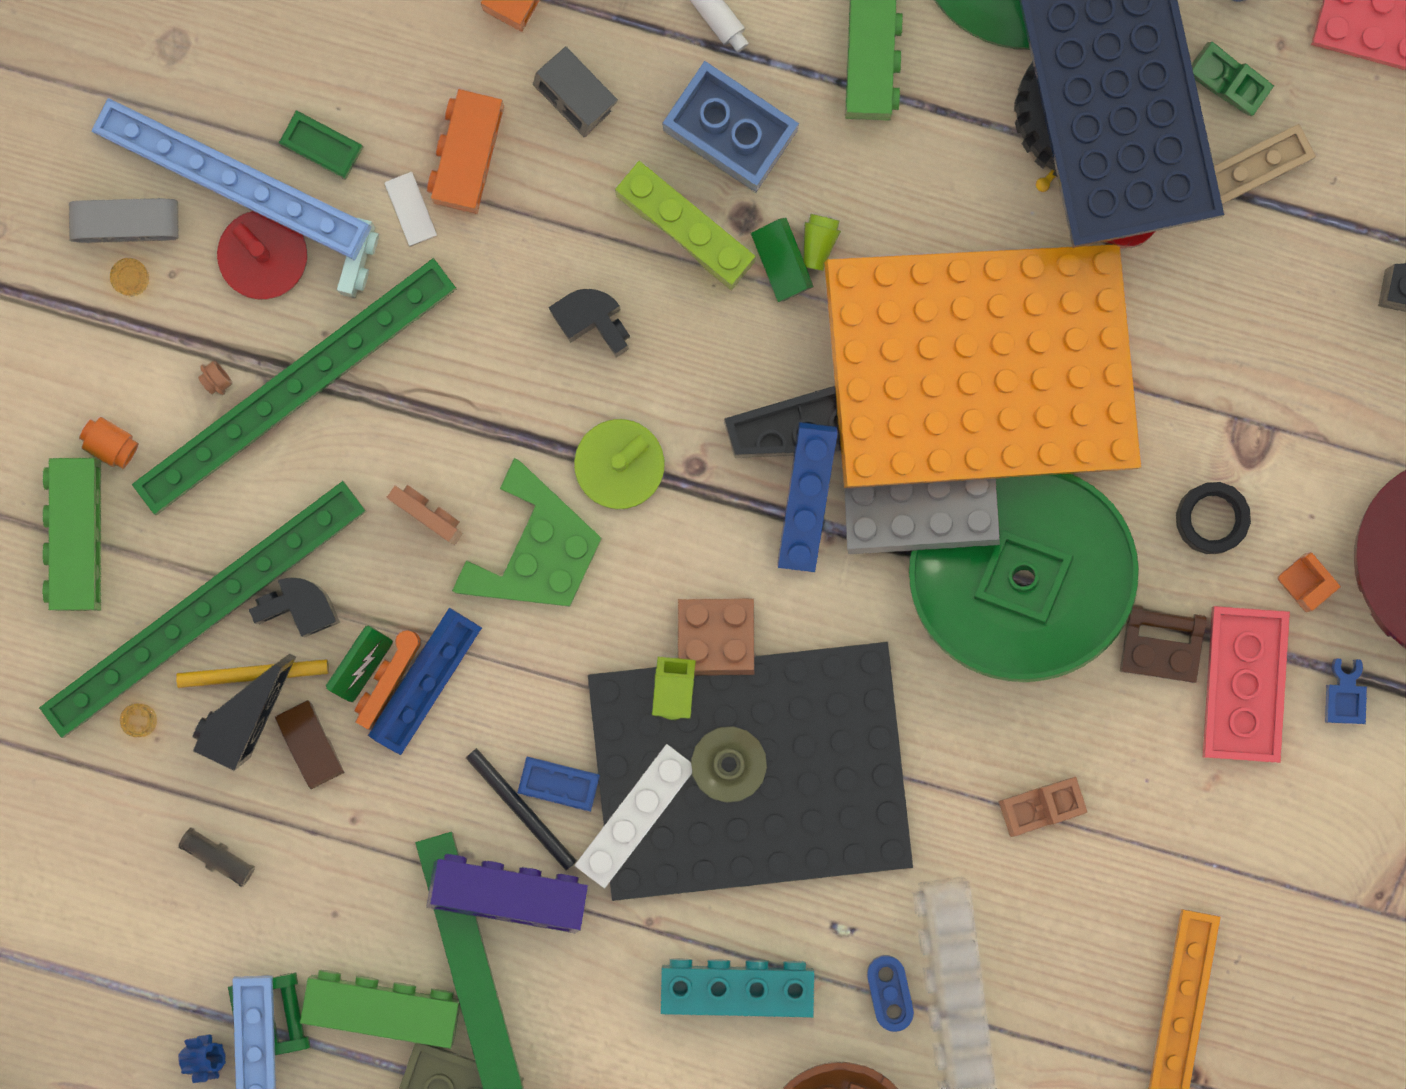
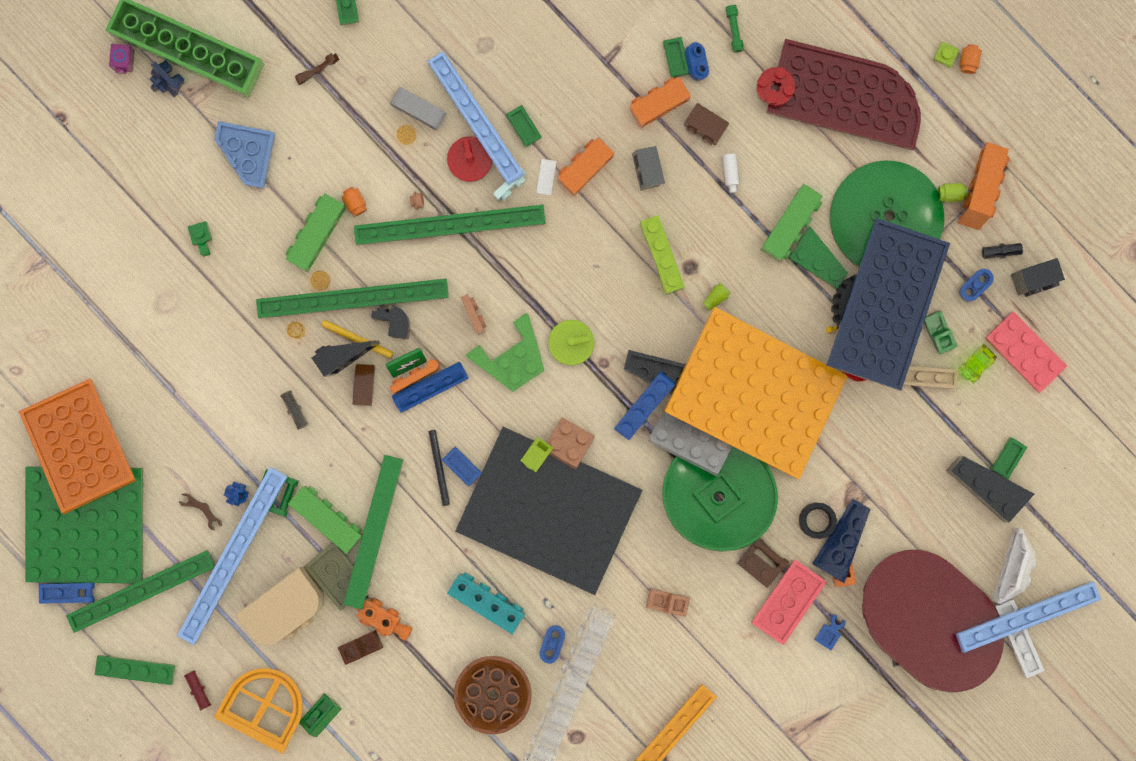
camera: 30 degrees right, 0 degrees up
(129, 611) = (320, 280): none -> clear yellow tile
(507, 895) = (410, 502): dark purple brick -> none
(589, 309) = (596, 266): black brick -> none
(635, 816) = (487, 500): white plate -> none
(730, 126) = (707, 223): medium blue brick -> none
(749, 759) = (531, 498): olive dish -> none
(782, 259) = (695, 295): green tile -> none
(952, 77) = (818, 259): none -> green wing
(1278, 537) = (841, 545): none -> dark blue wing
(1324, 94) = (977, 363): none -> clear neon green brick

